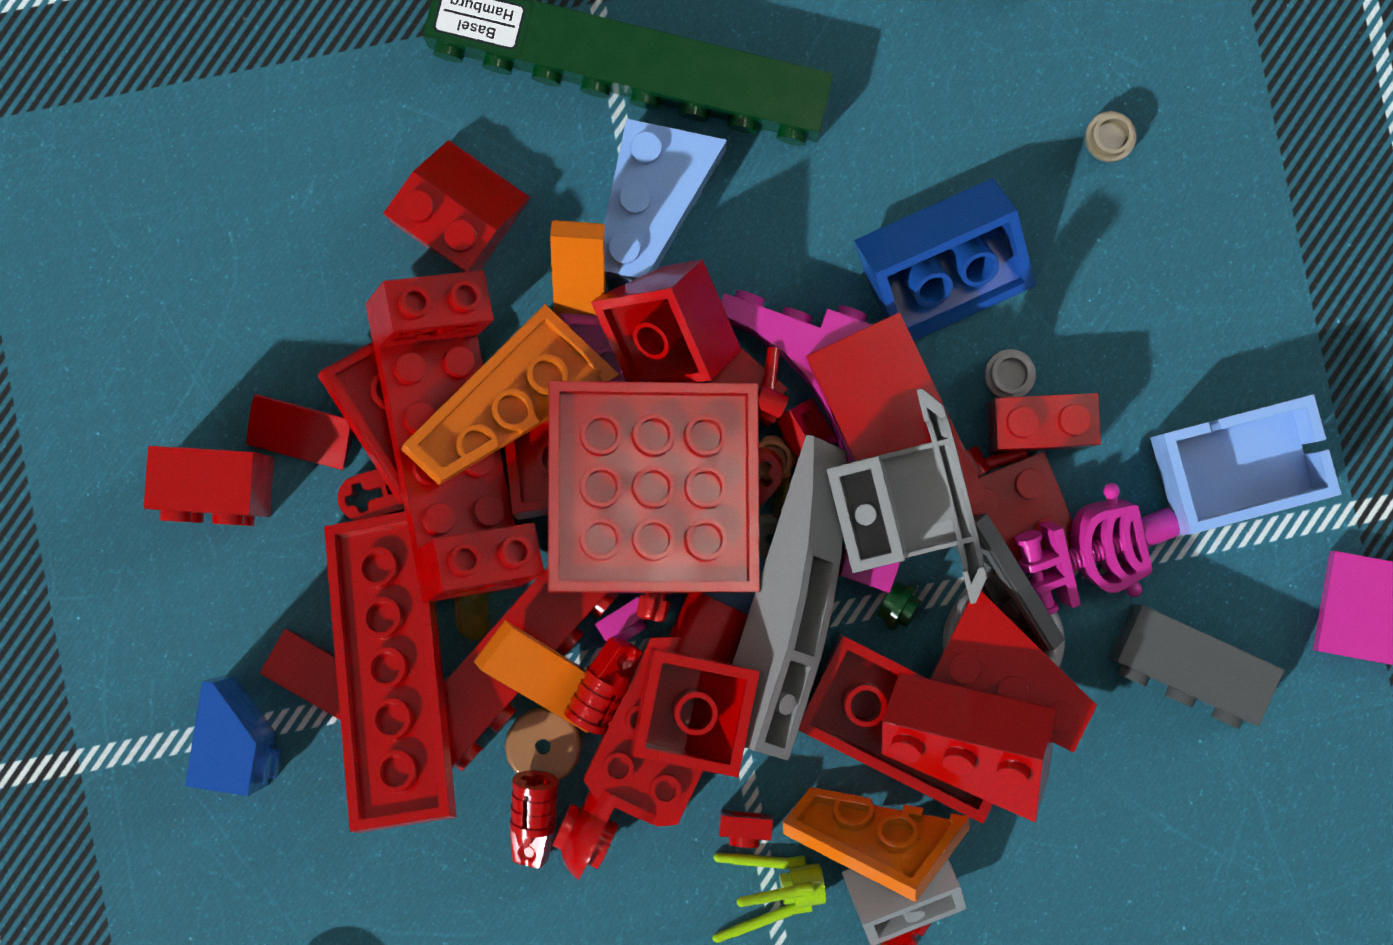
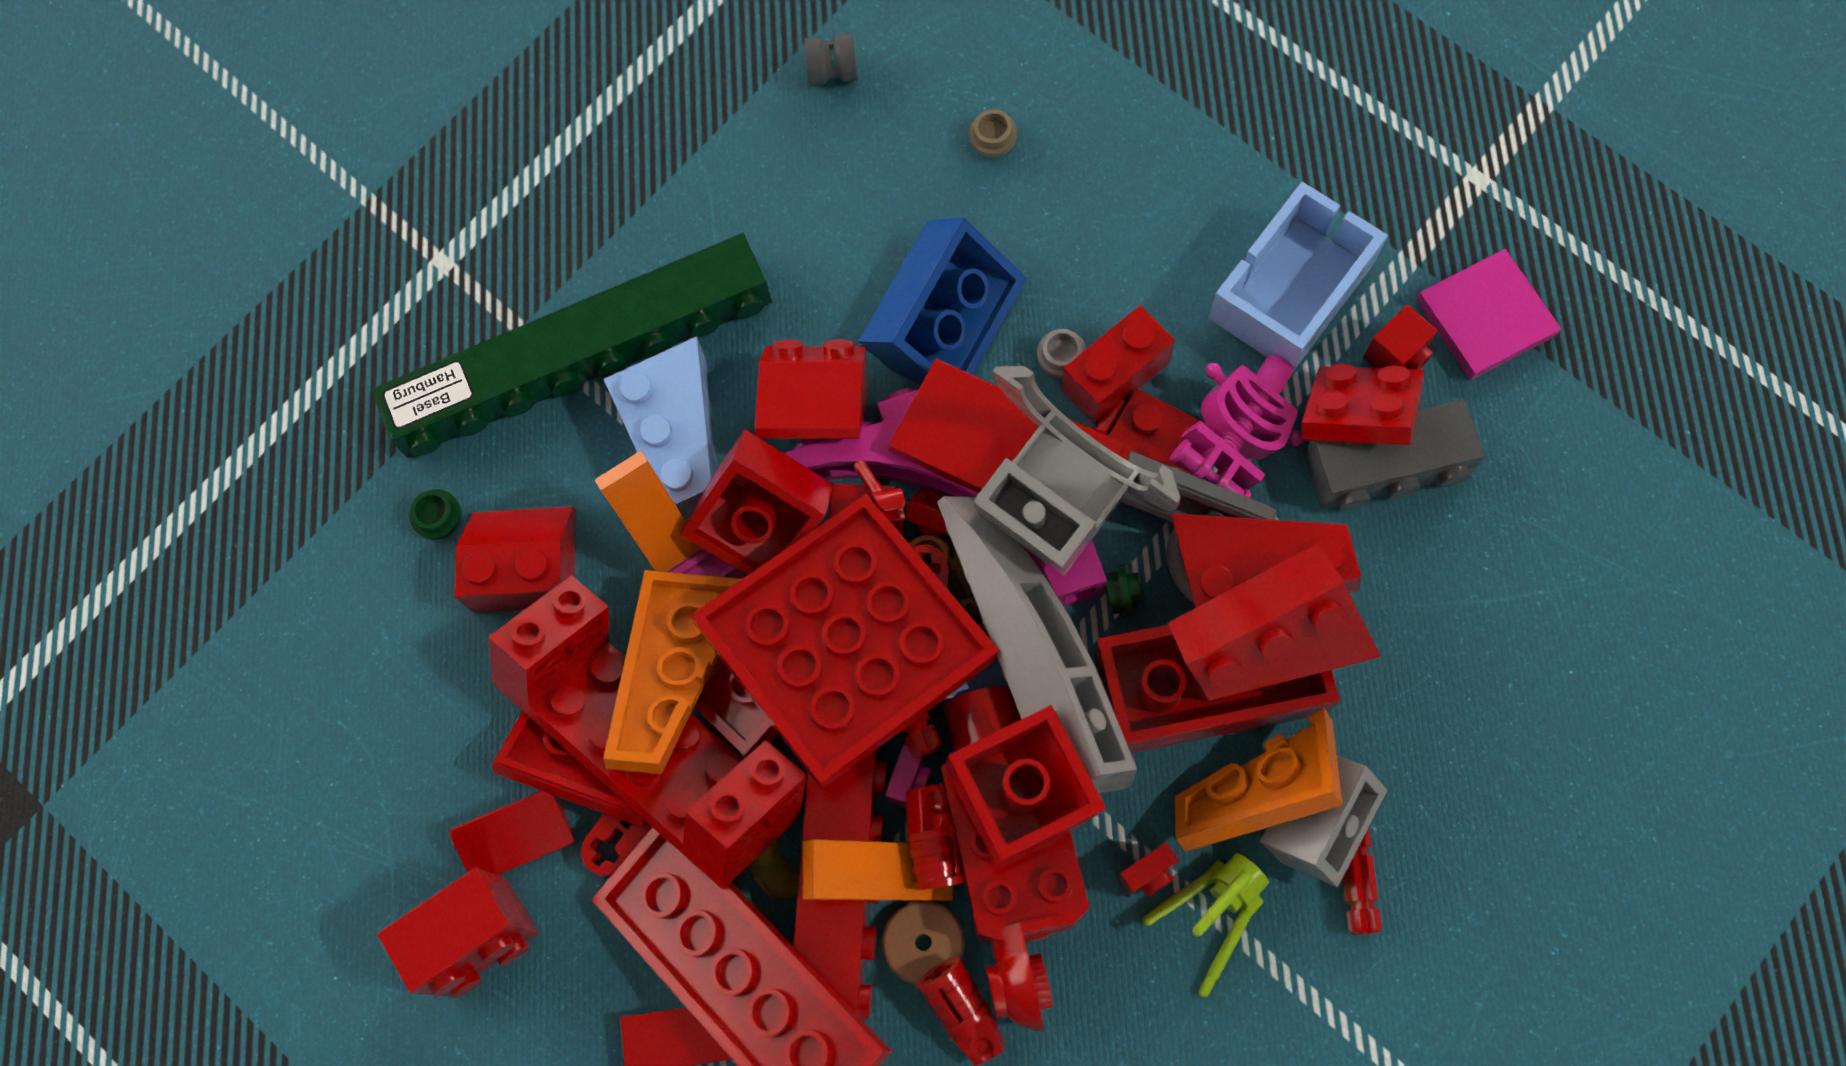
camera: 30 degrees left, 15 degrees down
(417, 119) = (435, 514): none -> dark green plate
(782, 259) = (811, 390): none -> red slope
(1203, 612) = (1363, 404): none -> red plate
(1280, 584) = (1402, 342): none -> red plate

